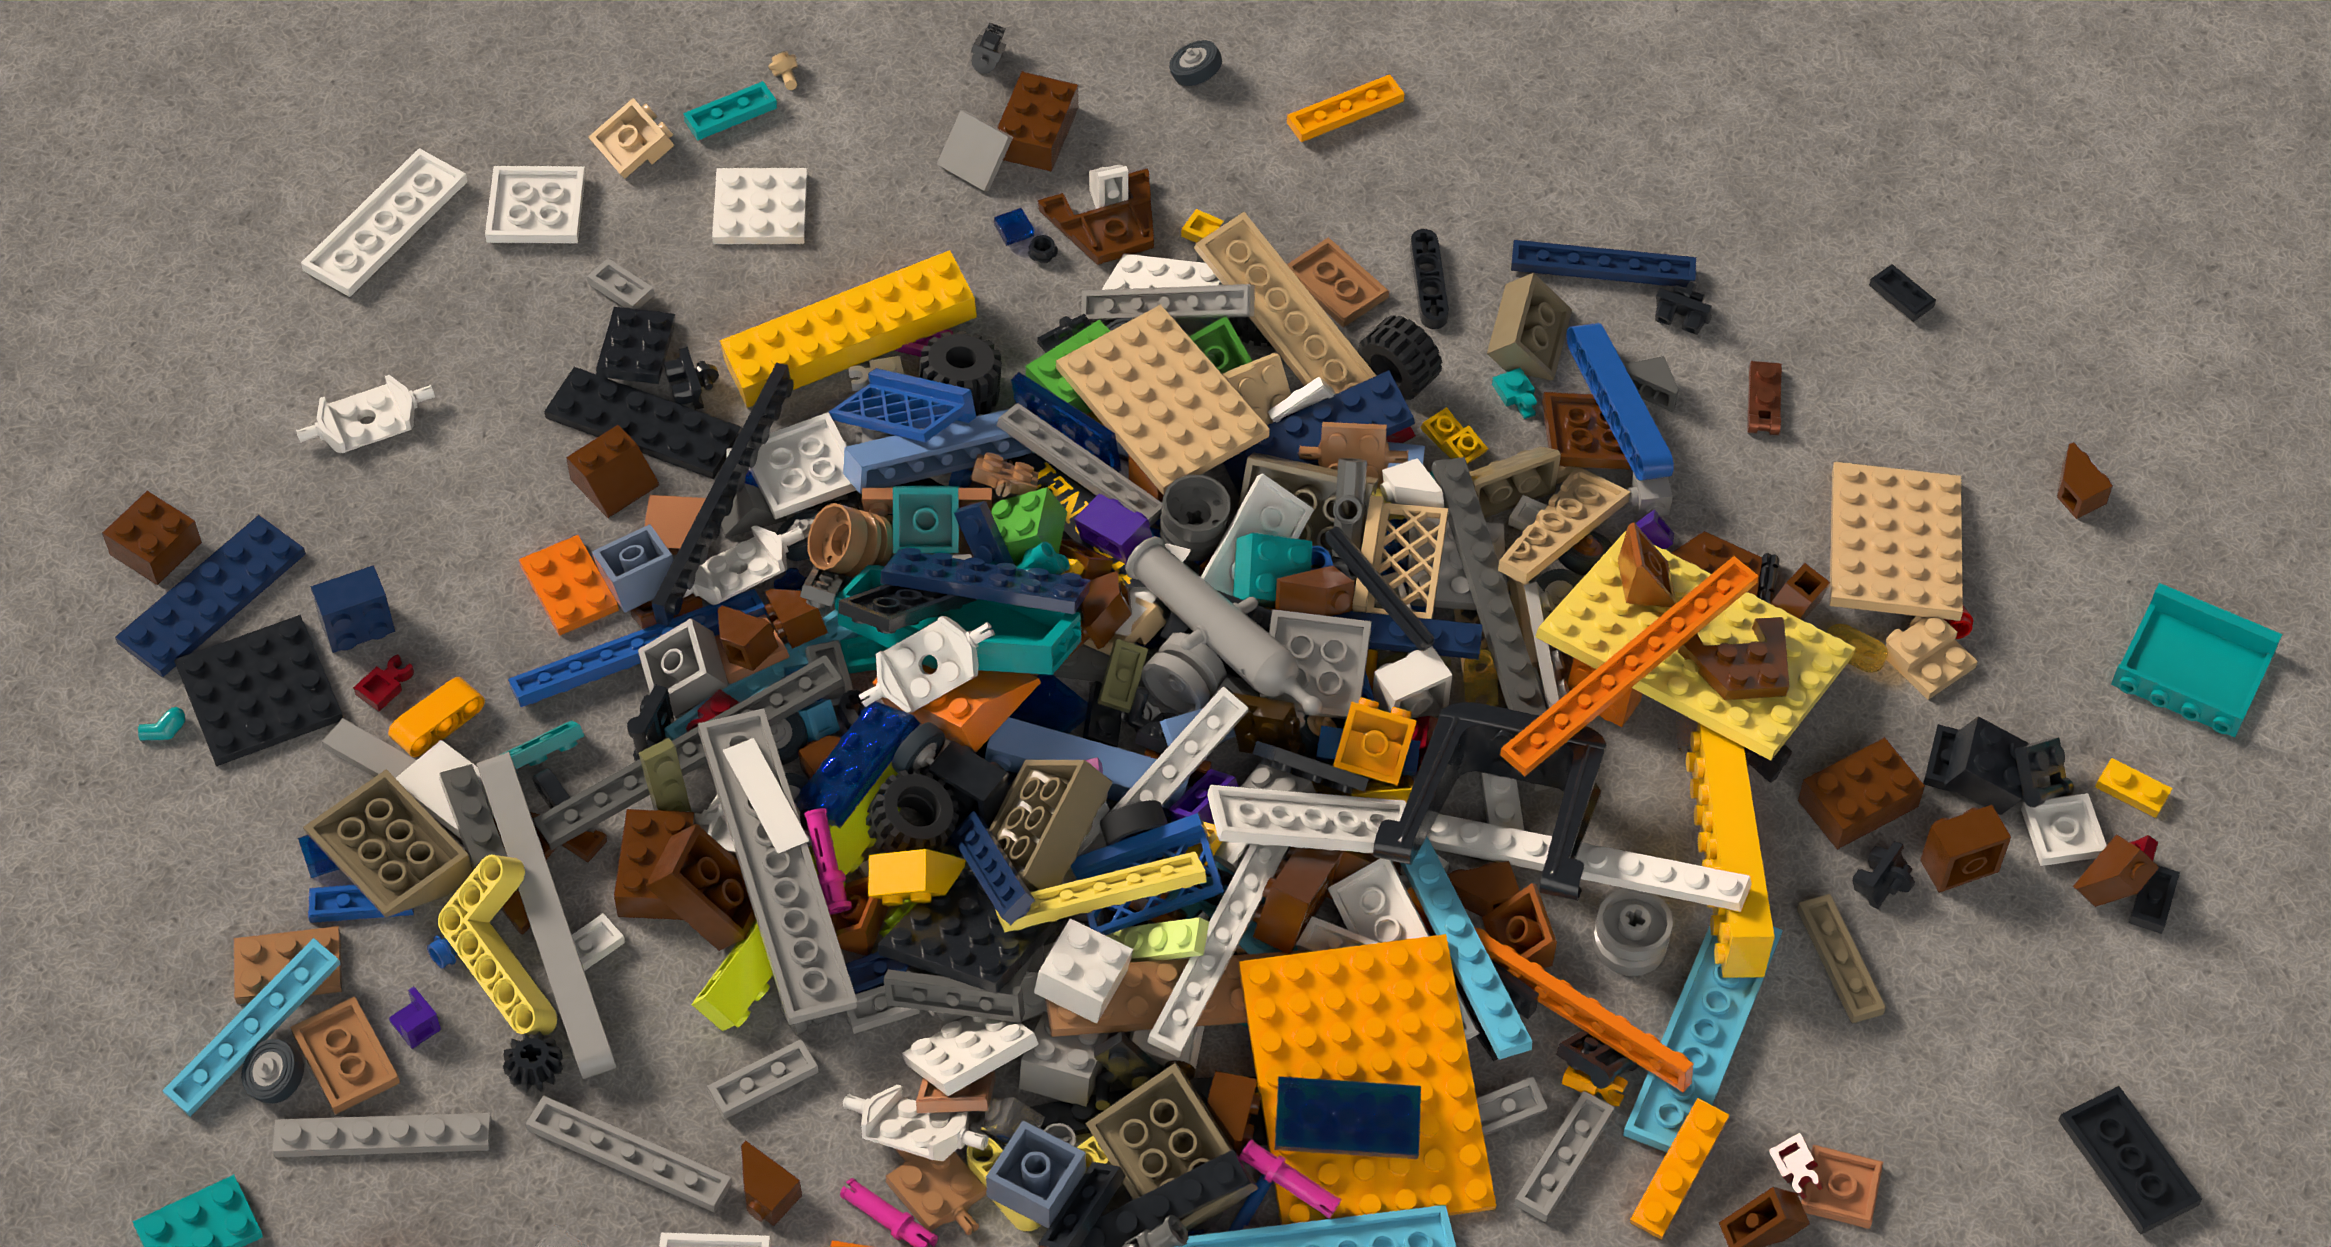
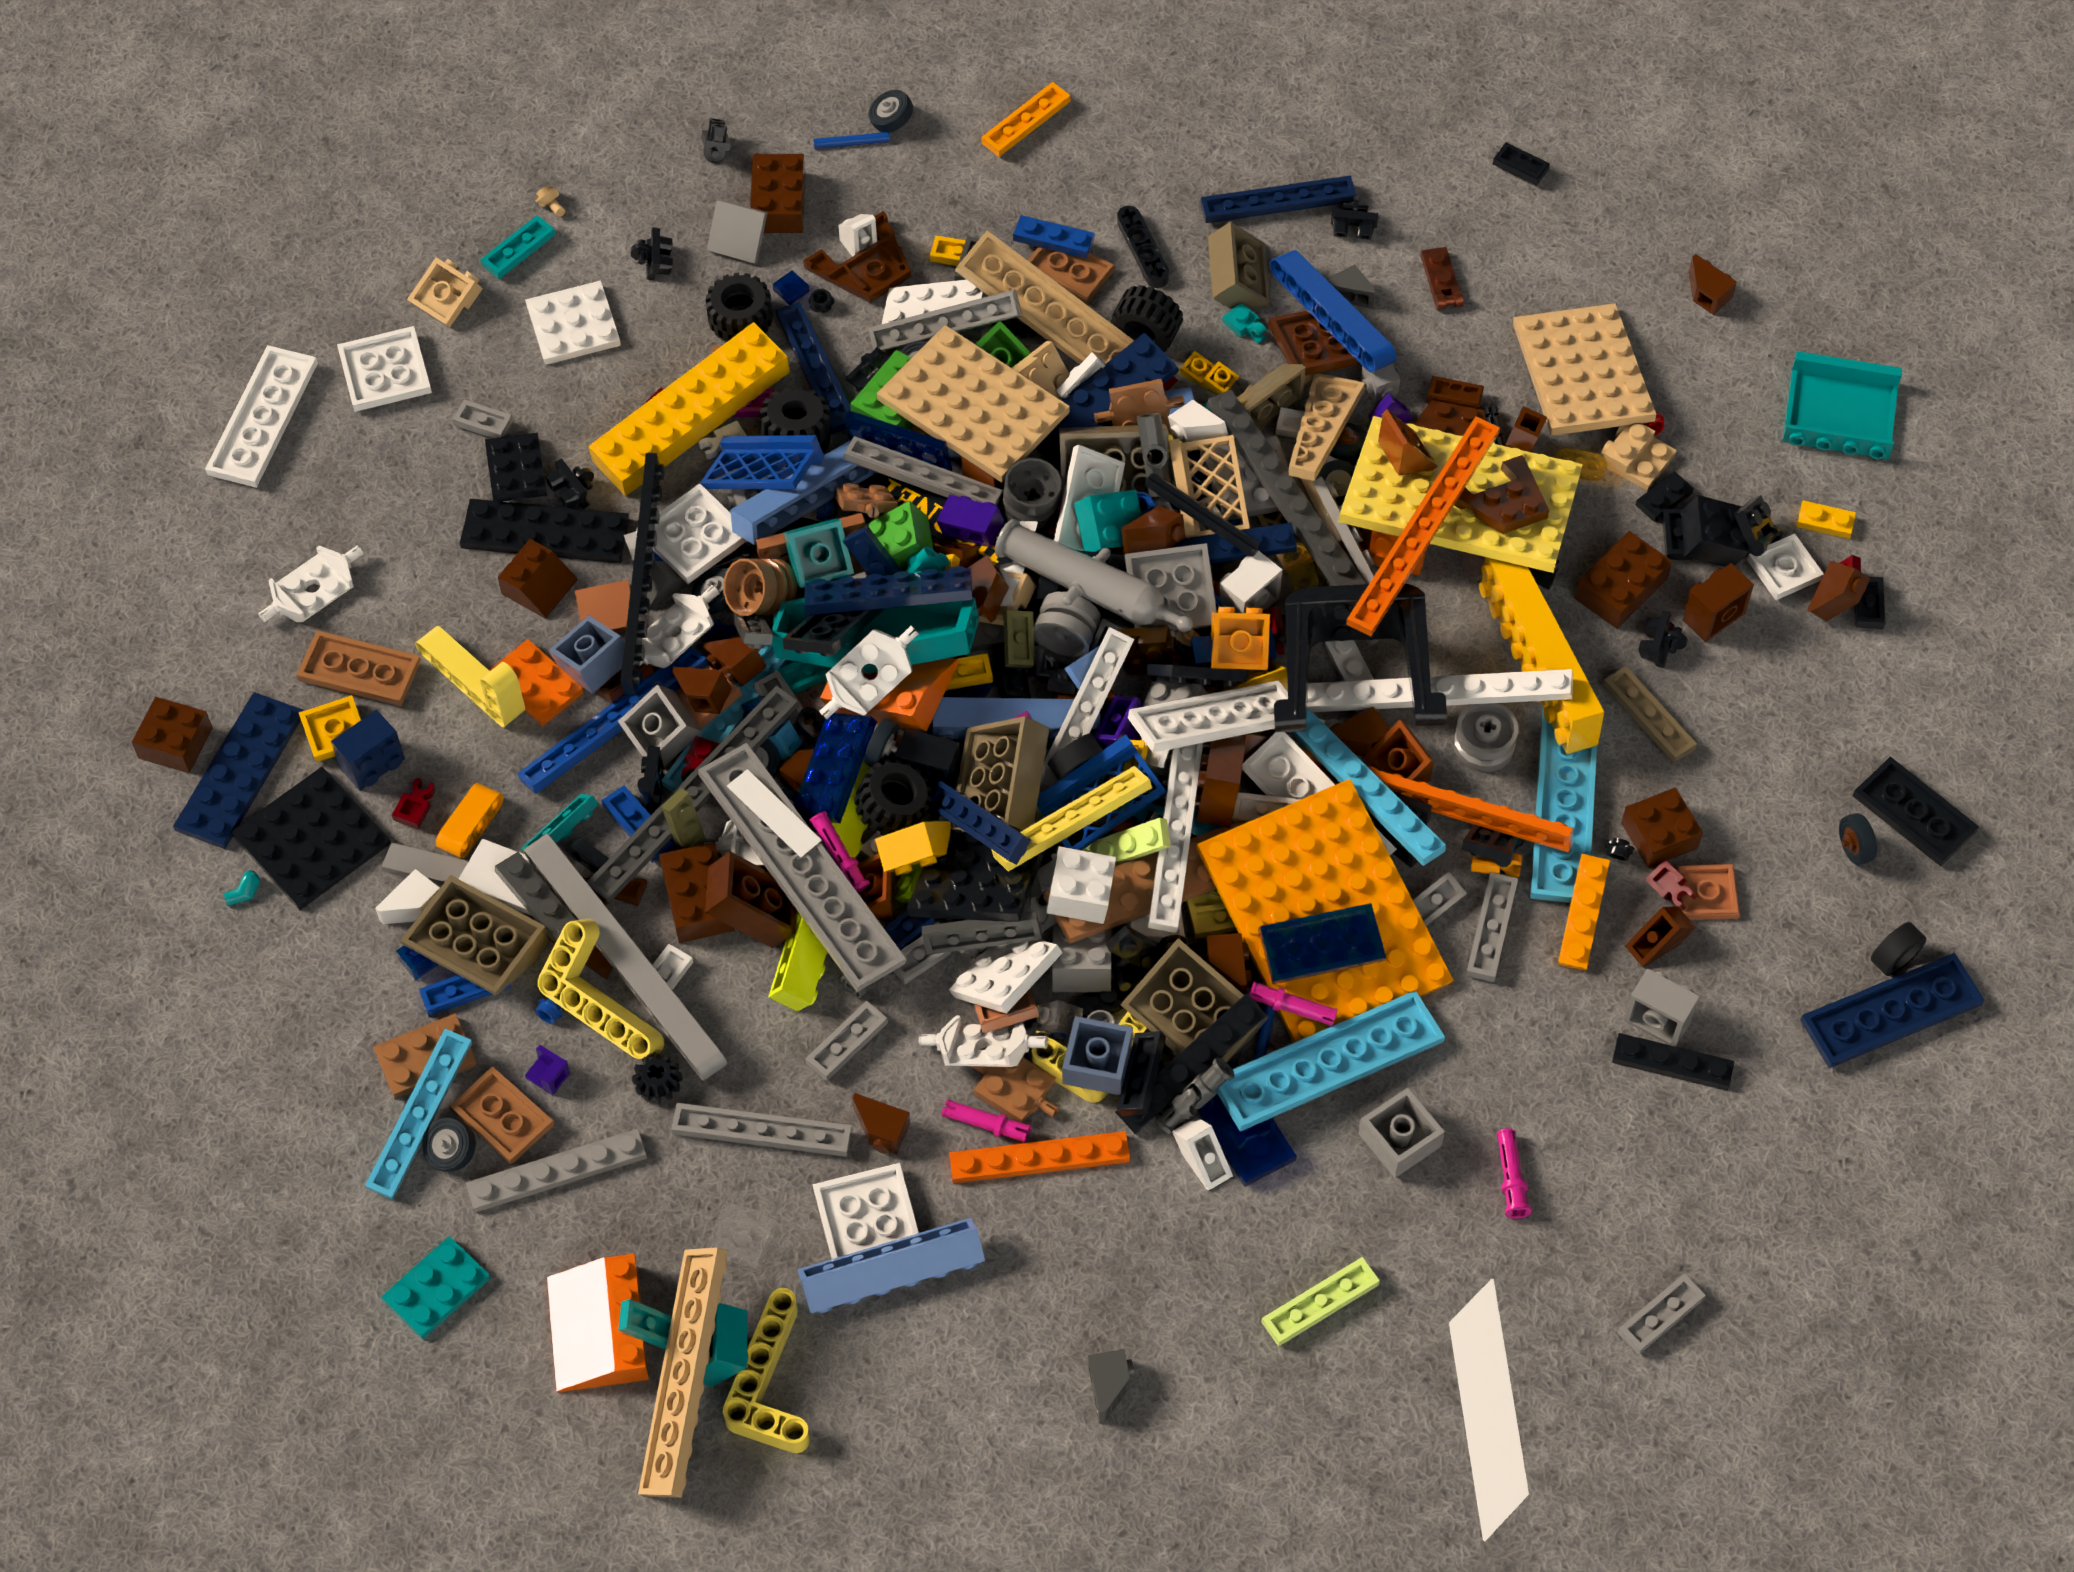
camera: 15 degrees left, 5 degrees up
(321, 565) = (326, 723): none -> yellow plate
(331, 784) = (407, 899): none -> white slope
(382, 518) = (358, 668): none -> medium nougat plate
(509, 571) = (493, 691): none -> light yellow beam
(615, 754) = (630, 814): none -> blue plate
(883, 144) = (650, 251): none -> black hips
(947, 215) = (733, 292): none -> black tyre
(1008, 312) = (814, 362): none -> dark blue plate
(1053, 699) = (971, 672): none -> yellow plate
(1141, 84) = (851, 140): none -> blue bar
(1232, 1050) = (1209, 915): none -> light yellow wing
(1329, 242) = (1053, 236): none -> blue plate
(1735, 529) = (1455, 392): none -> reddish brown plate
(1749, 1106) = (1619, 849): none -> black plate
(1809, 1094) = (1661, 827): none -> reddish brown brick
(1946, 710) = (1664, 496): none -> black plate
(2044, 1172) = (1857, 839): none -> black wheel

